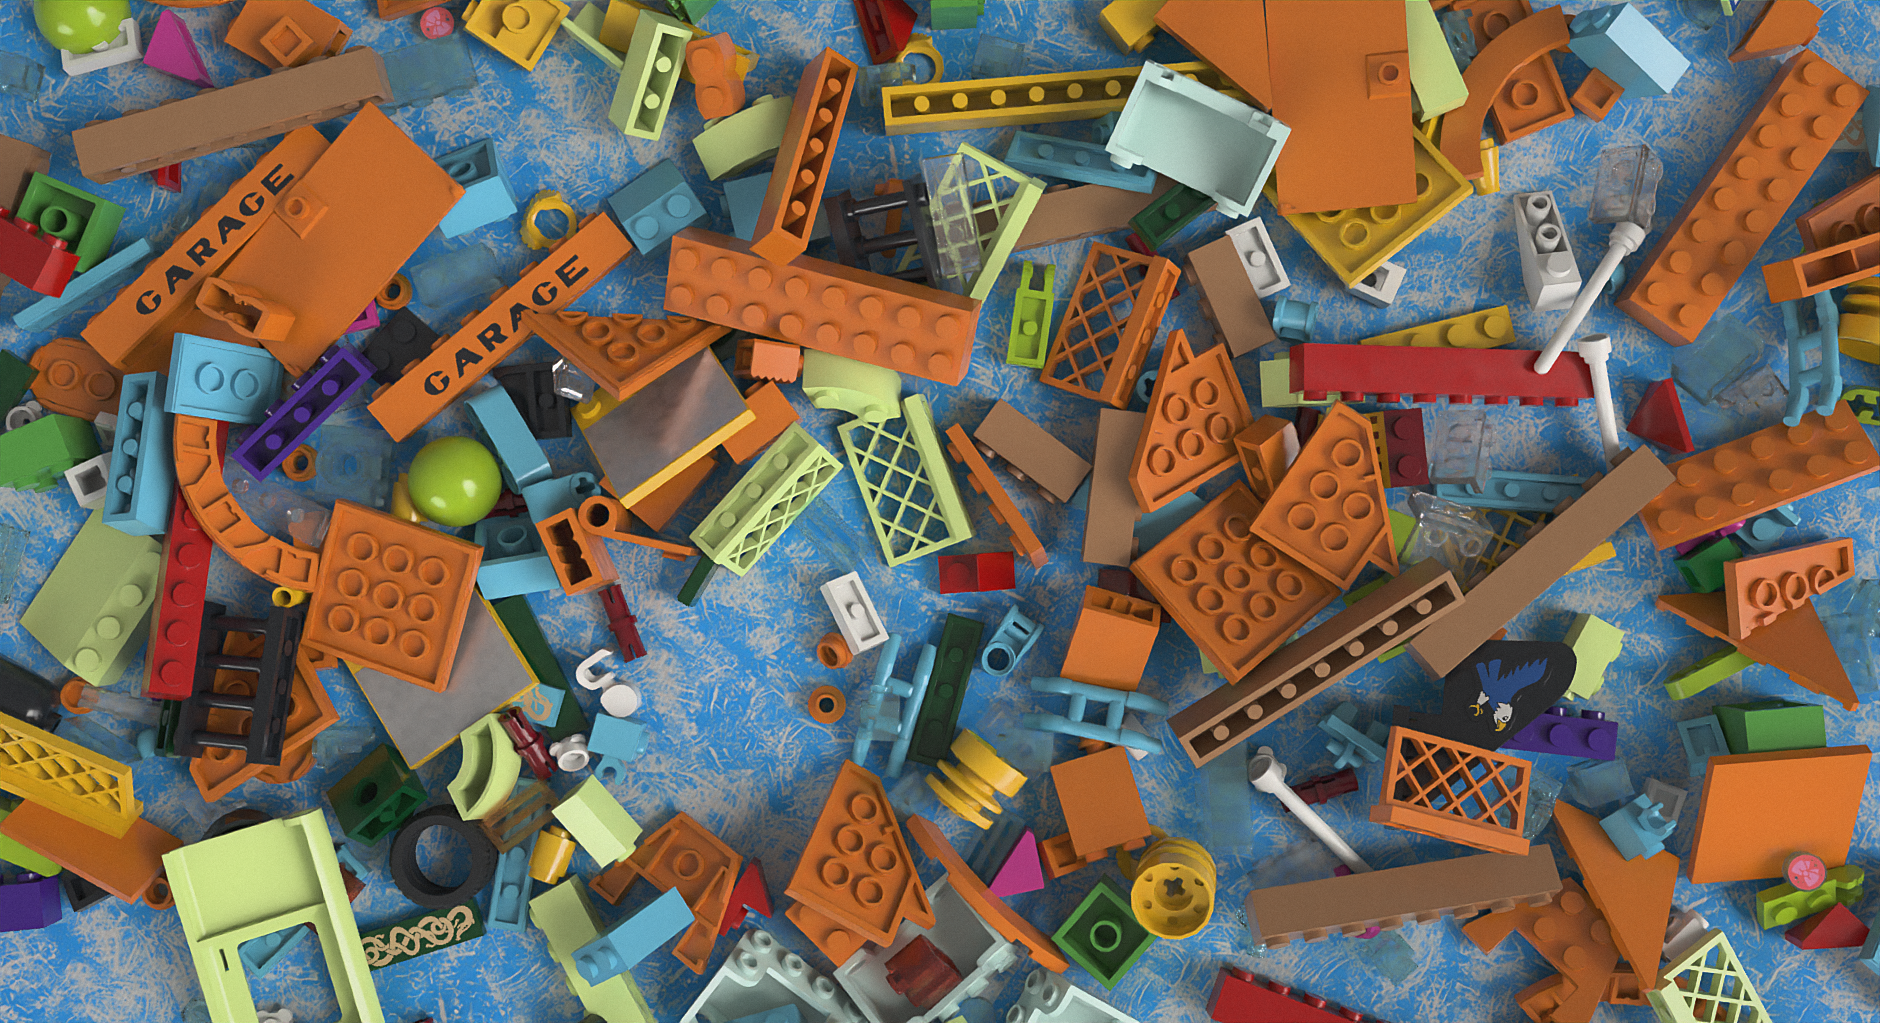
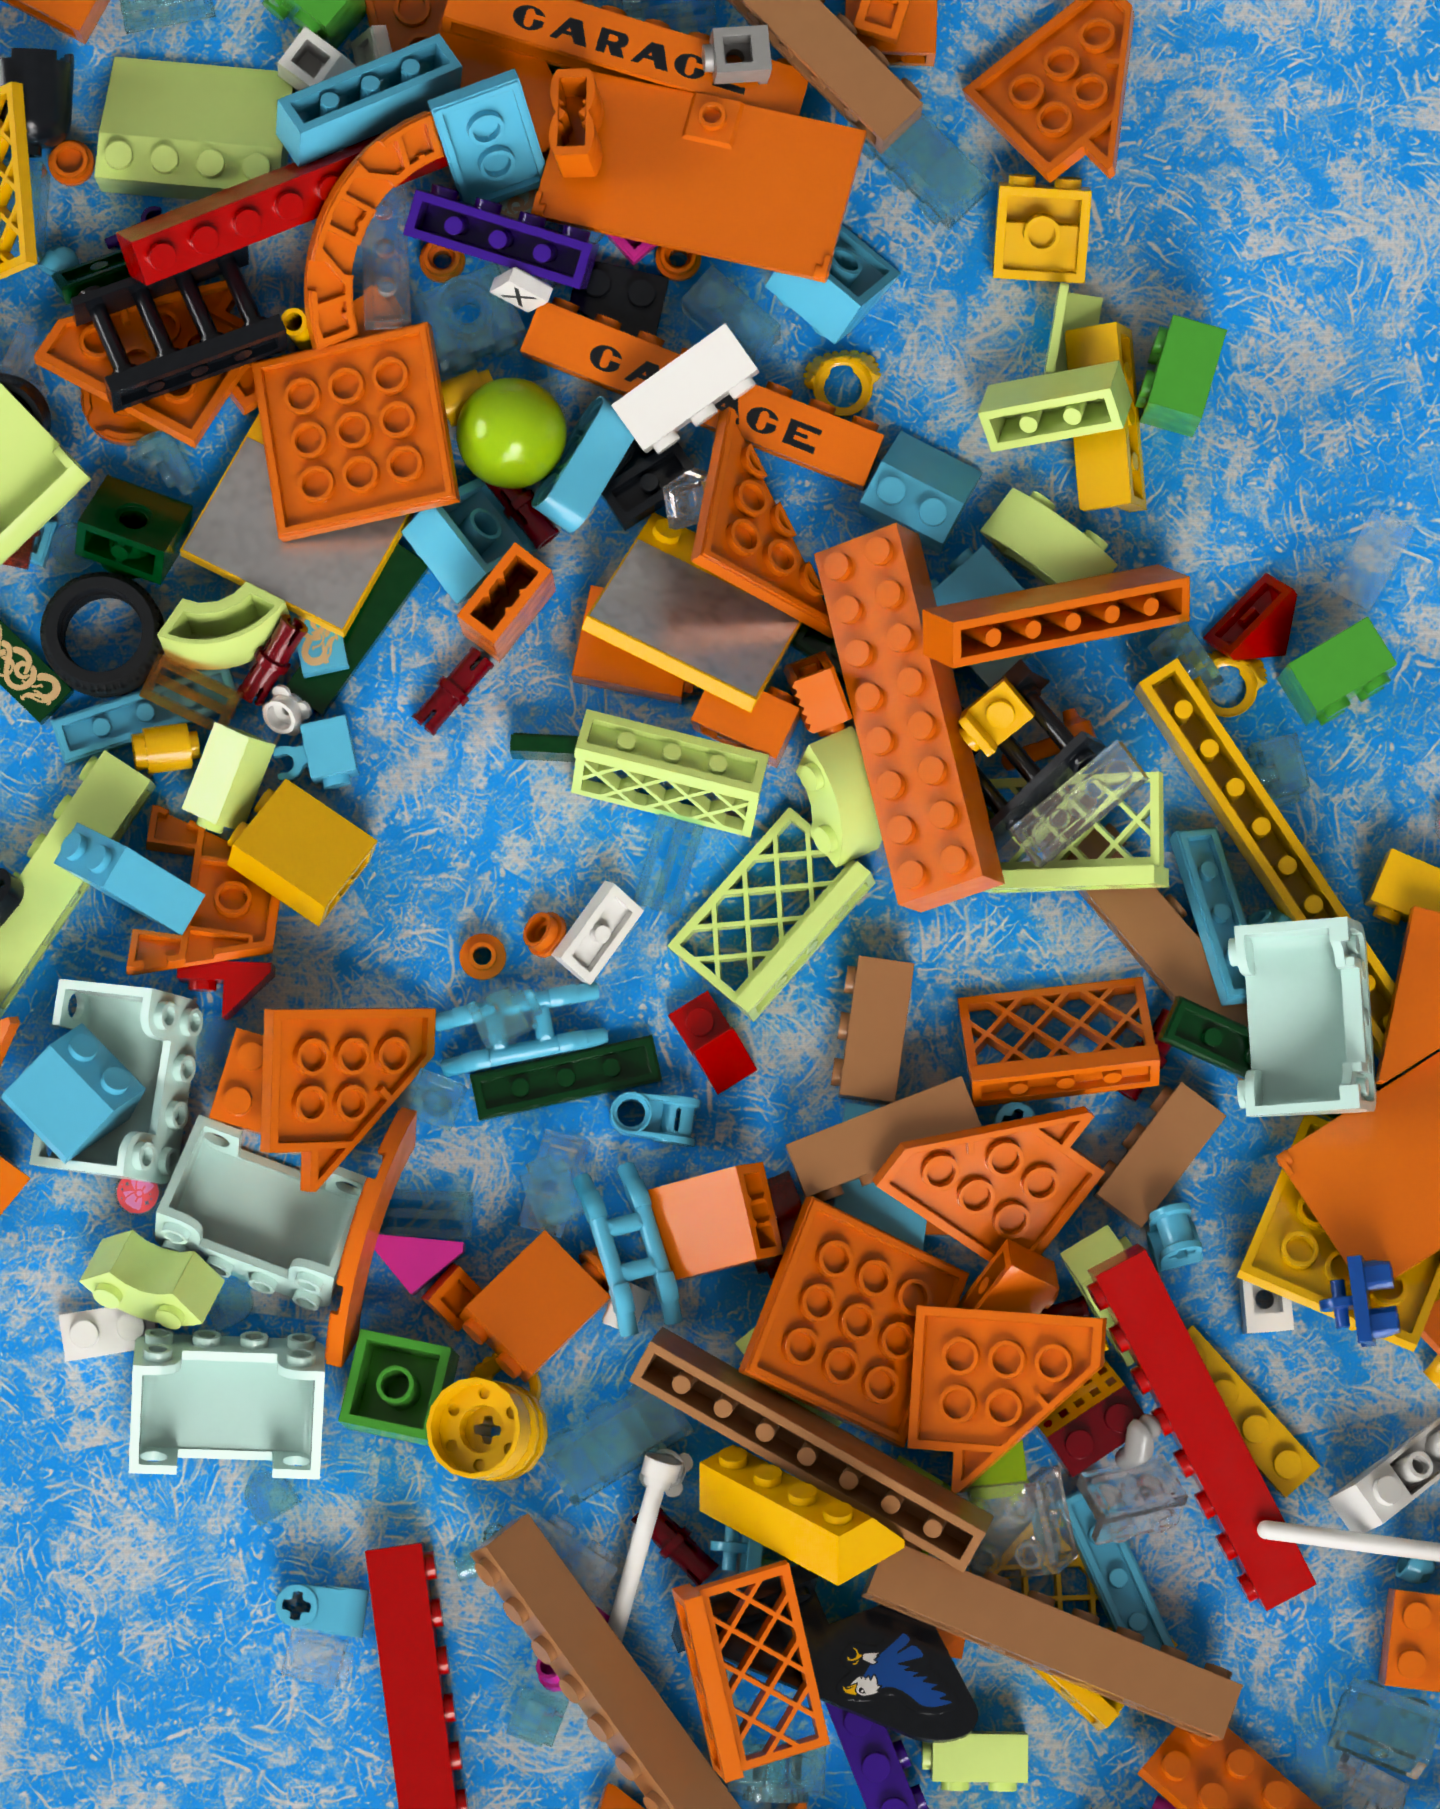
camera: 60 degrees right, 5 degrees down
(120, 705) = (84, 211): clear pin -> none
(259, 151) = (747, 43): none -> light grey brick
(350, 417) = (521, 289): none -> white tile
(438, 22) = (990, 153): tile -> none
(491, 335) = (687, 390): none -> white brick
(559, 494) = (557, 550): medium azure piece -> none
(617, 698) = (370, 727): white leg -> none
(619, 527) = (557, 632): orange door -> none
(679, 797) = (300, 851): none -> yellow brick
(713, 66) = (1100, 467): orange brick -> none
(856, 241) = (994, 717): none -> yellow bracket
(922, 973) = (250, 1210): clear red brick -> none
(975, 779) = (488, 1156): yellow wheel -> none
(1002, 507) = (798, 1027): orange wing -> none
(1031, 320) = (1018, 954): lime hinge -> none
(1259, 257) = (1219, 1164): white plate -> none
(1361, 702) = (792, 1516): none -> yellow slope
(1408, 197) = (1364, 1278): none -> blue hips
(1431, 423) = (1138, 1442): none -> light grey arm
(1595, 351) = (1316, 1580): white piece -> none
(1661, 419) = (1285, 1703): red slope -> none

